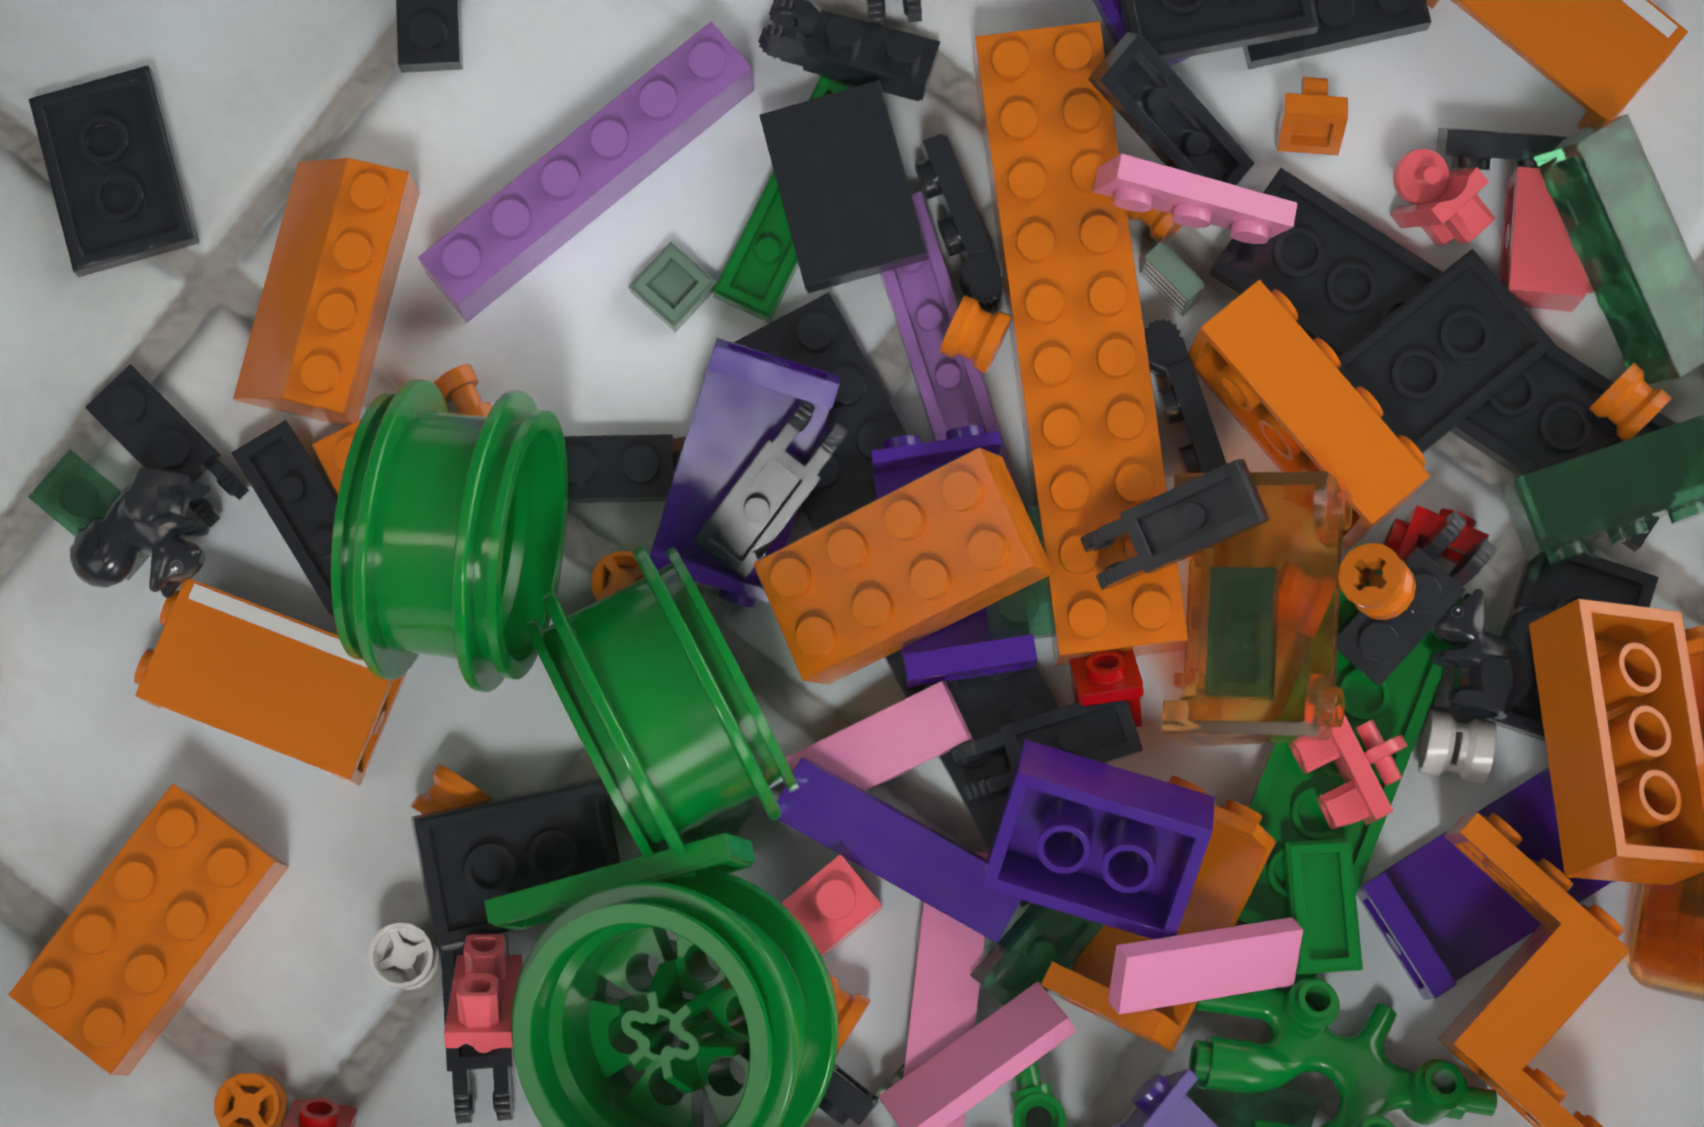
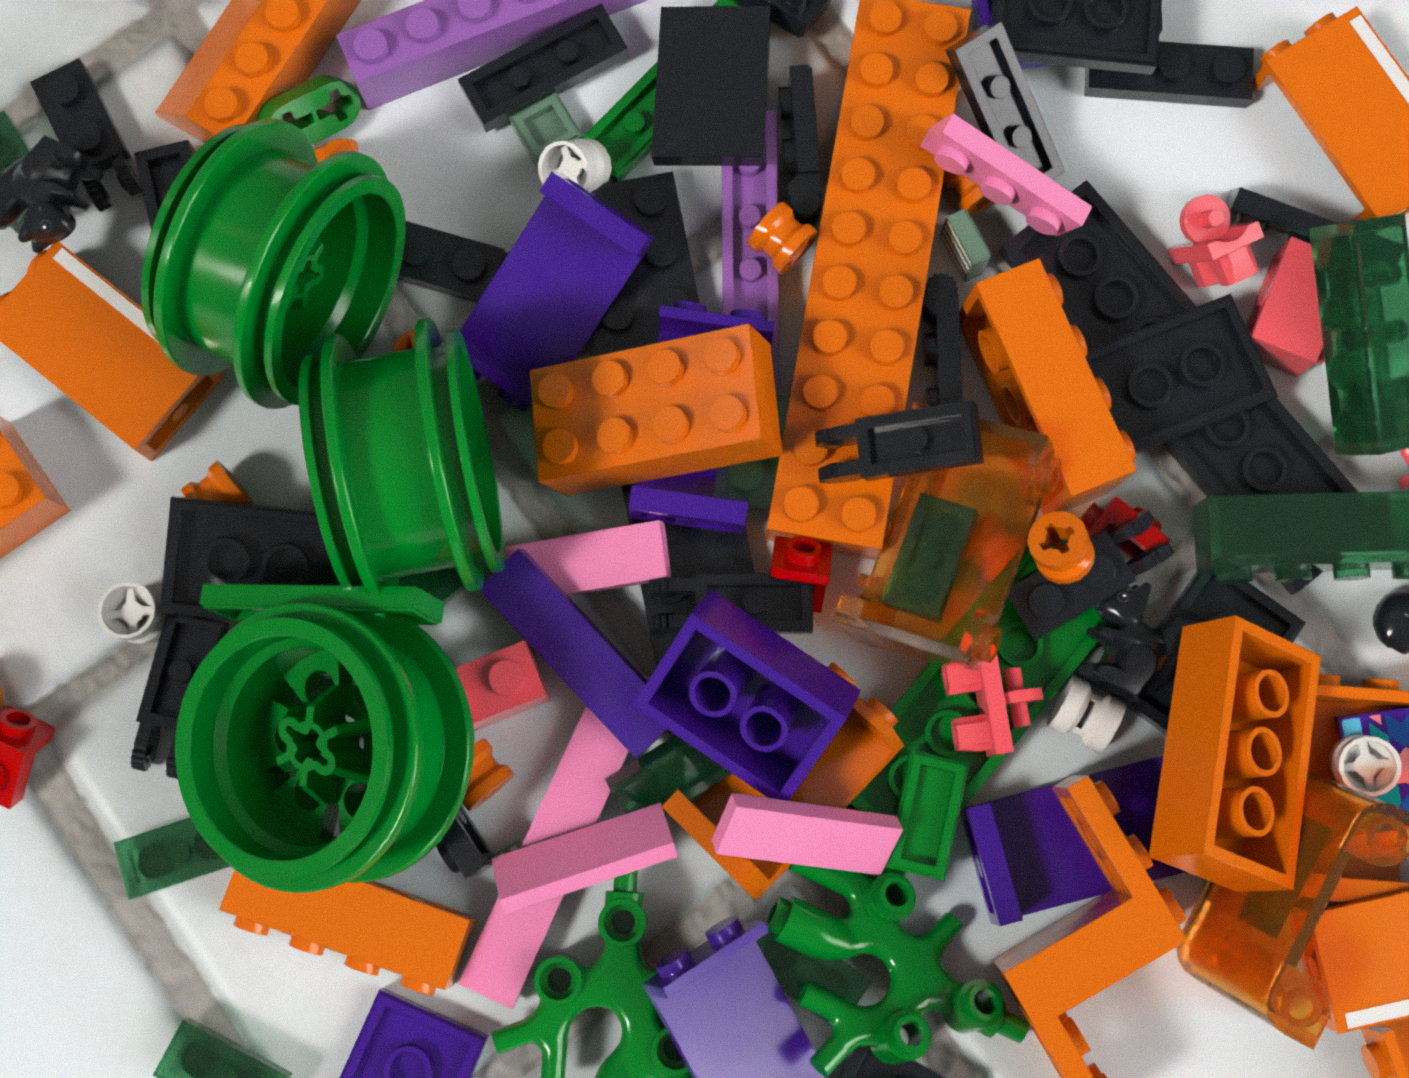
camera: 15 degrees right, 0 degrees up
(407, 346) = (305, 104): none -> green beam
(483, 995) = (173, 663): coral hips -> none
(649, 219) = (543, 67): none -> black plate
(707, 323) = (564, 158): none -> white wheel
(766, 495) = (561, 317): hinge -> none
(1312, 120) = (1125, 149): orange tile -> none
(1630, 402) = (1328, 463): orange wheel -> none

